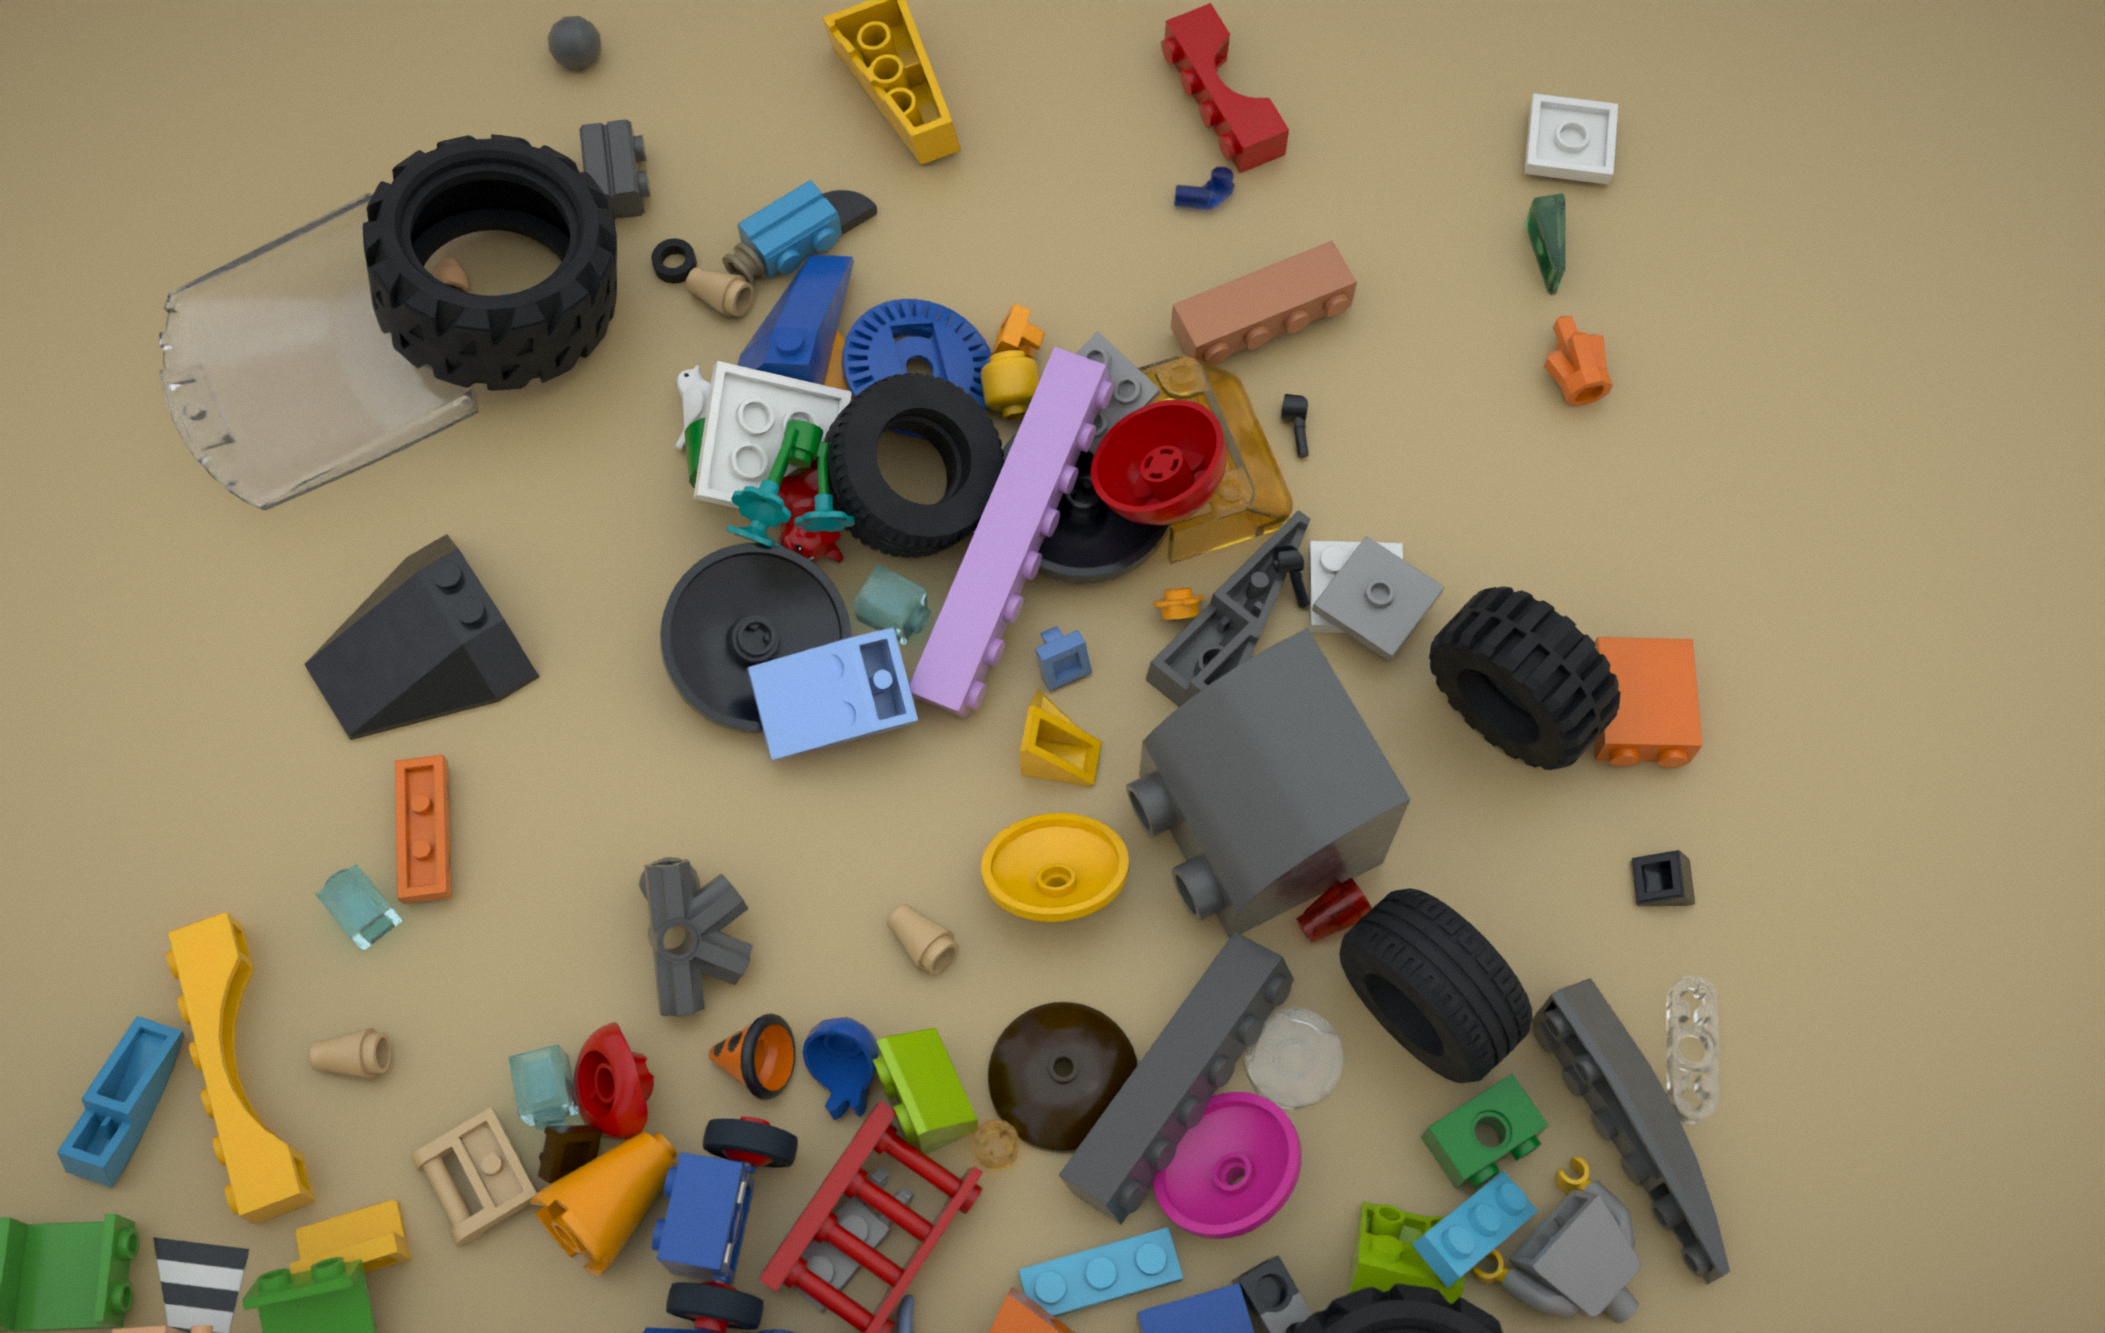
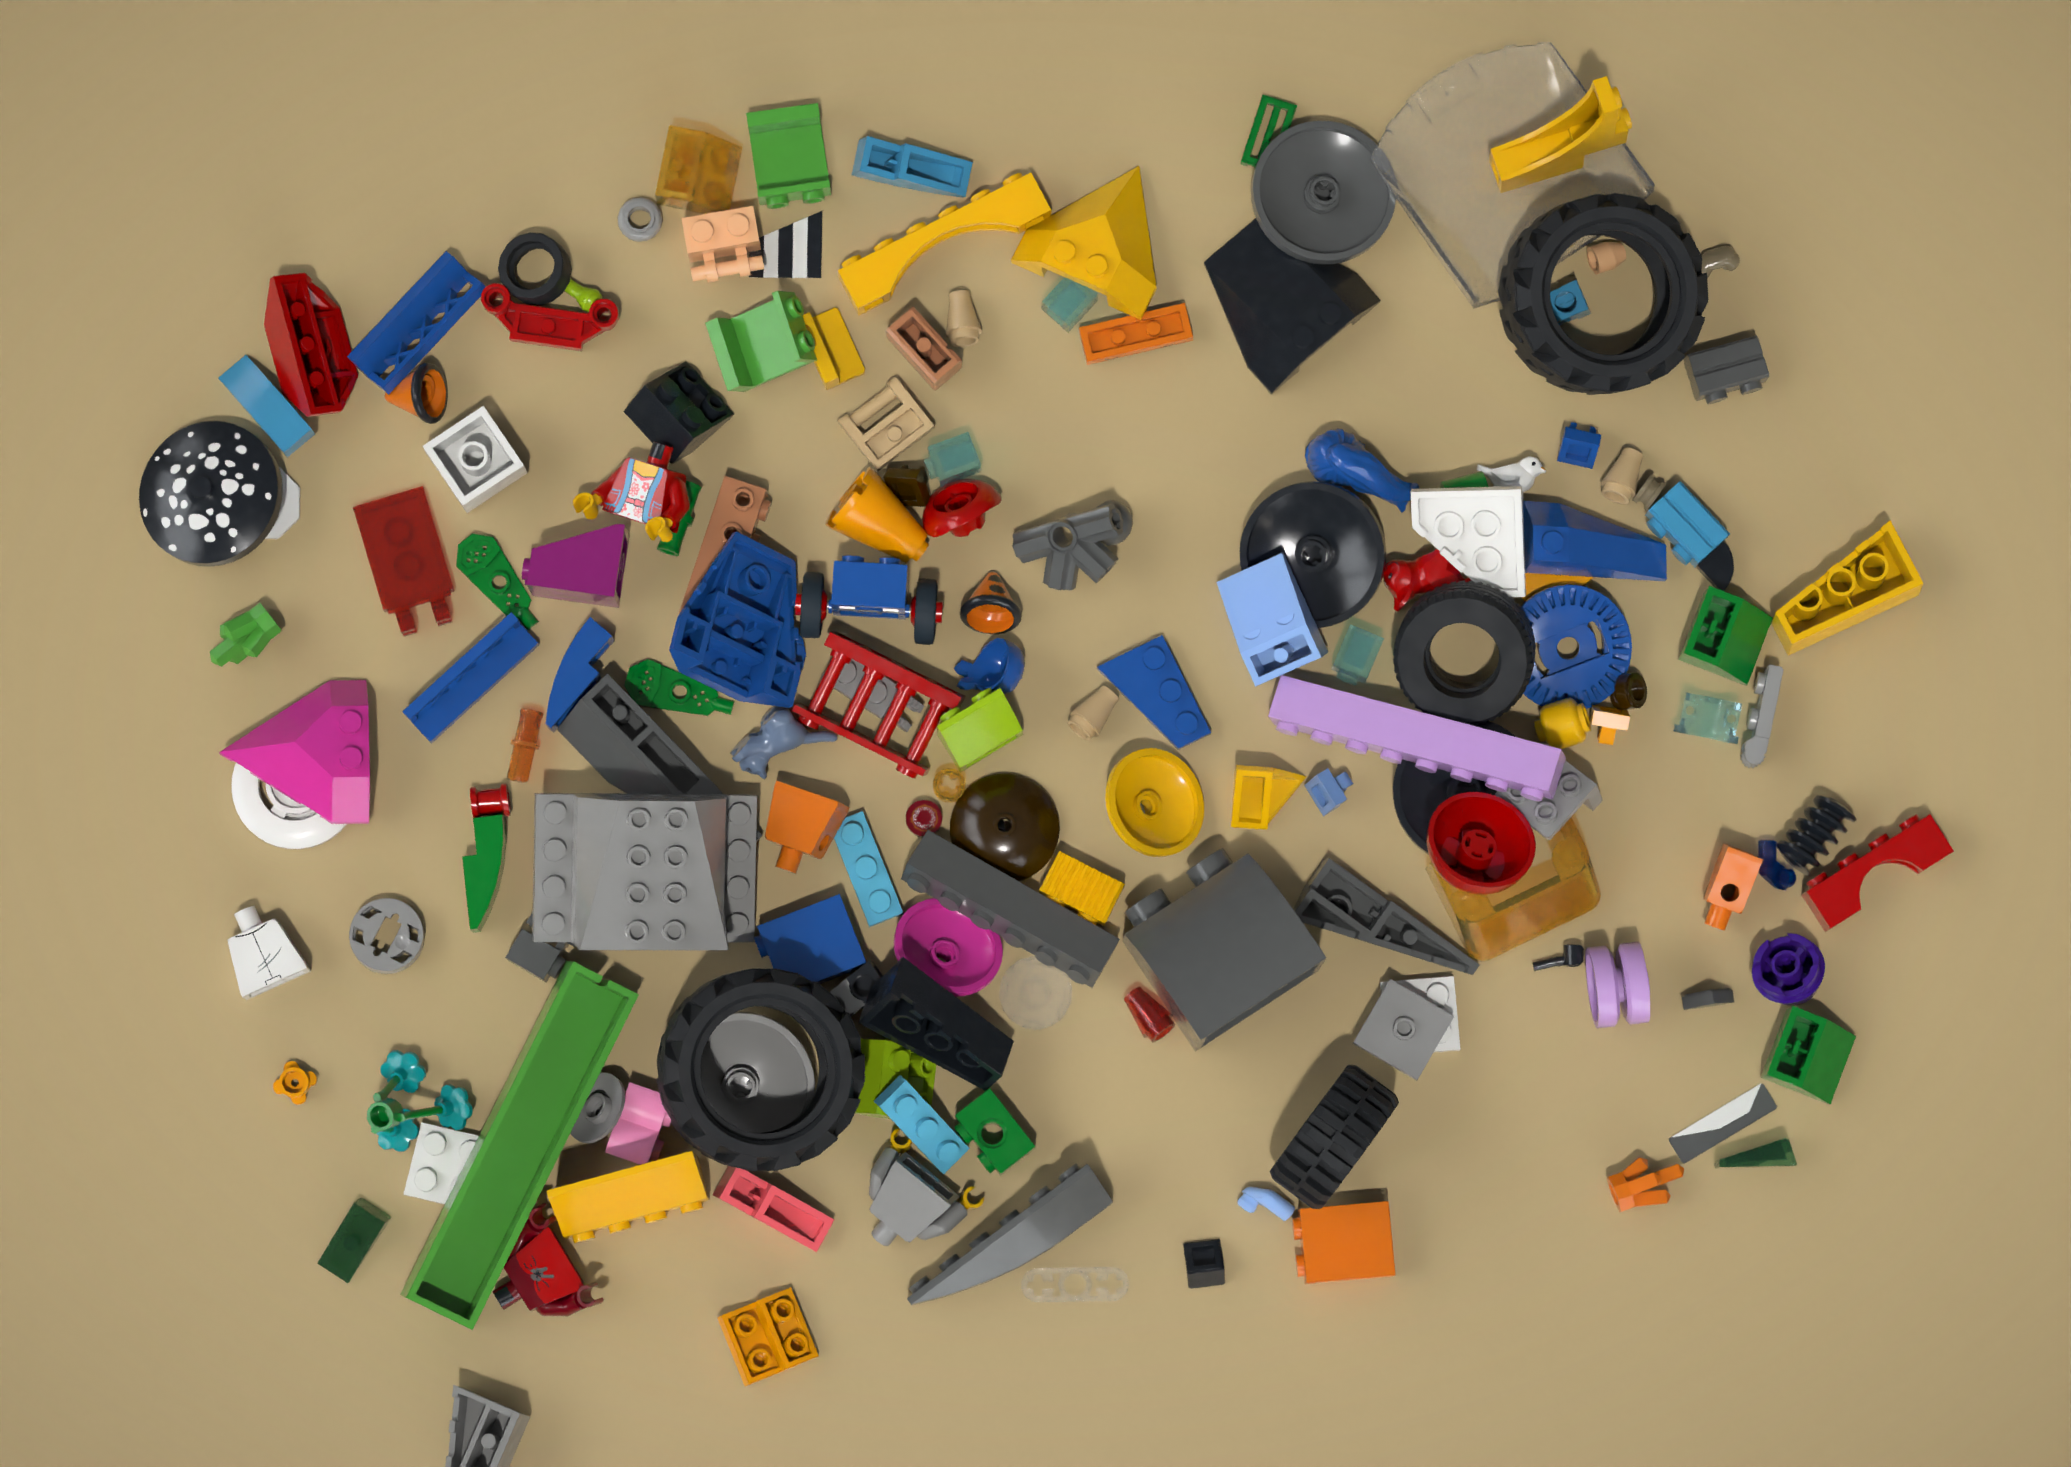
camera: 80 degrees right, 15 degrees up
(233, 656) = (1278, 105): none -> green tile
(284, 254) = (1562, 144): none -> yellow arch
(286, 859) = (1098, 244): none -> yellow wedge
(290, 577) = (1321, 193): none -> dark grey dish
(378, 1107) = (923, 348): none -> nougat brick
(574, 42) = (1850, 313): dark grey piece -> none
(639, 589) = (1343, 461): none -> blue hair
(668, 248) = (1649, 447): black piece -> none
(675, 331) = (1579, 446): none -> blue tile
(766, 509) = (1458, 563): teal plant -> none
(902, 853) = (1159, 691): none -> blue wing
(926, 207) = (1726, 636): none -> green slope
(982, 310) = (1629, 691): none -> dark brown tile
(1025, 227) = (1709, 718): none -> clear light blue piece
(1029, 178) = (1761, 719): none -> light grey hinge
(1038, 1185) = (923, 816): none -> dark red tile
(1158, 978) = (1081, 889): none -> yellow brick
(1174, 144) = (1814, 833): none -> black piece
(1179, 603) = (1385, 877): light orange plate -> none
(1224, 225) = (1734, 868): none -> orange torso
(1264, 304) = (1659, 920): nougat brick -> none
(1288, 559) = (1427, 957): black hand -> none
(1334, 175) = (1788, 969): none -> dark purple cone
(1339, 1191) = (936, 1025): none -> black wedge
(1340, 350) = (1618, 986): none -> lavender wheel
(1358, 263) = (1708, 998): none -> dark grey tile
(1429, 180) = (1808, 1055): none -> green slope
(1436, 985) = (1085, 1080): black tyre -> none
(1503, 280) = (1722, 1123): none -> dark grey sticker
(1571, 139) = (1865, 1174): white plate -> none
(1582, 791) = (1269, 1199): none -> light blue arm

